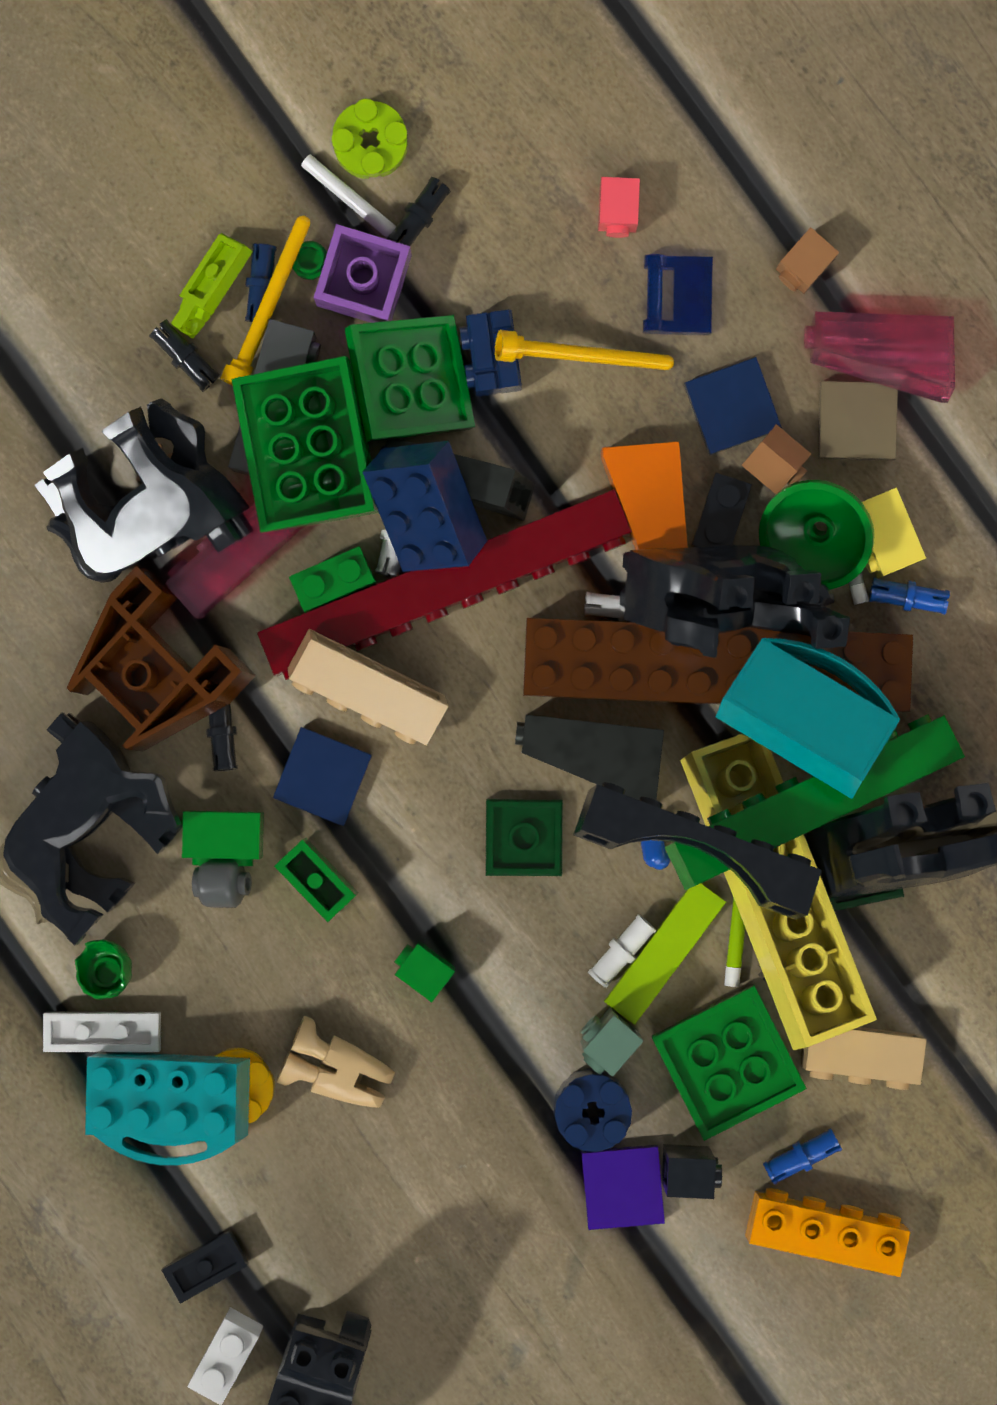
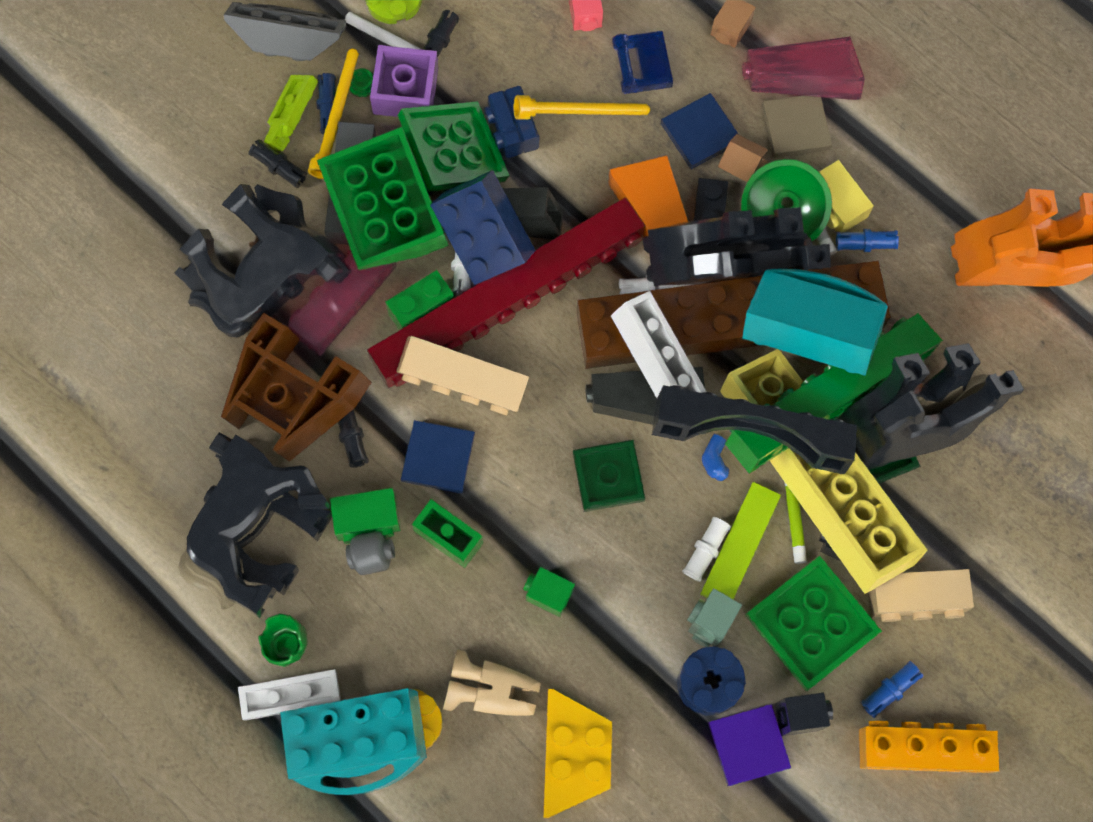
camera: 10 degrees left, 15 degrees down
(221, 169) = (283, 29): none -> dark grey wedge
(420, 1159) = (575, 754): none -> yellow wing
(610, 718) = (655, 345): none -> white brick

